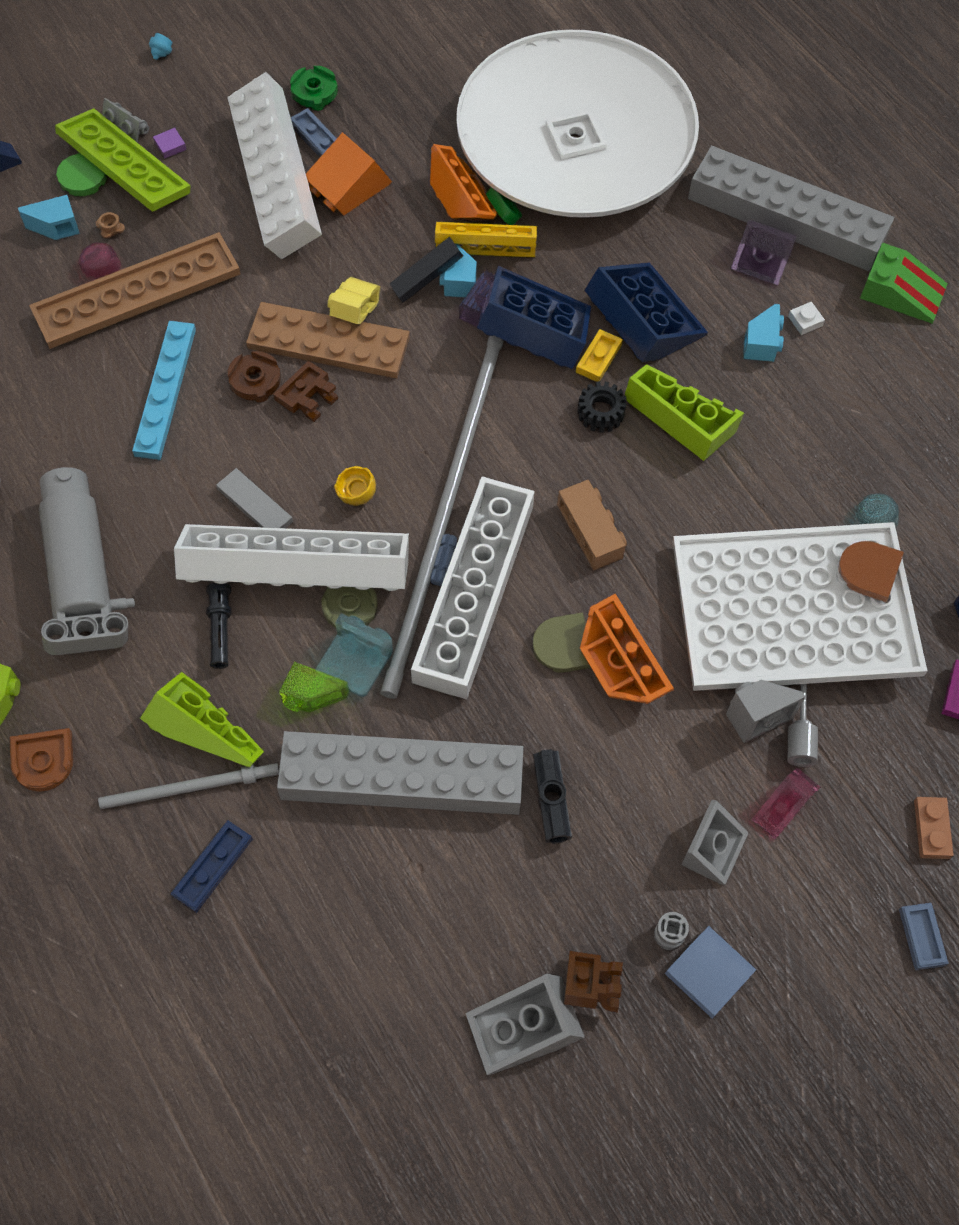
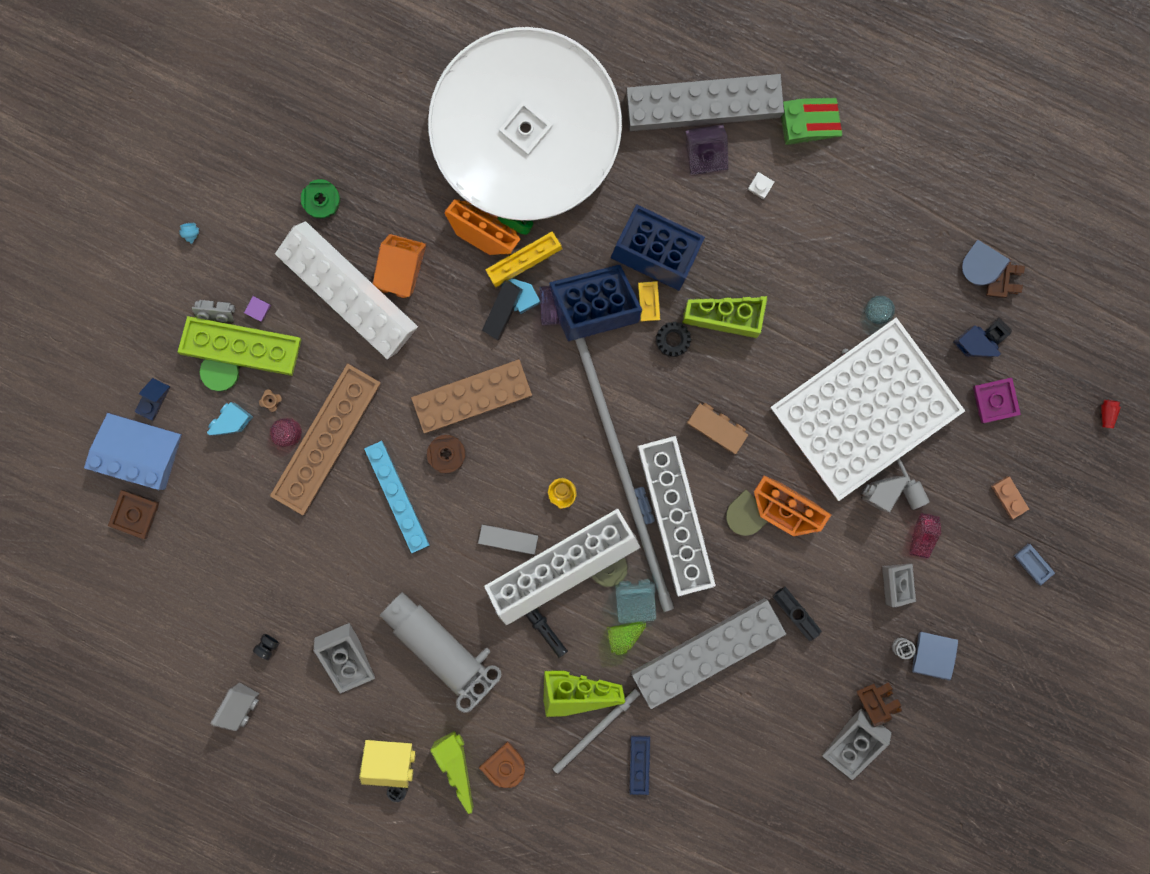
camera: 30 degrees left, 25 degrees up
(301, 386) = (481, 444): reddish brown plate -> none
(312, 131) = (352, 239): sand blue tile -> none
(354, 300) = (472, 362): light yellow brick -> none
(763, 337) = (743, 221): medium azure slope -> none
(870, 568) = (900, 362): dark orange tile -> none

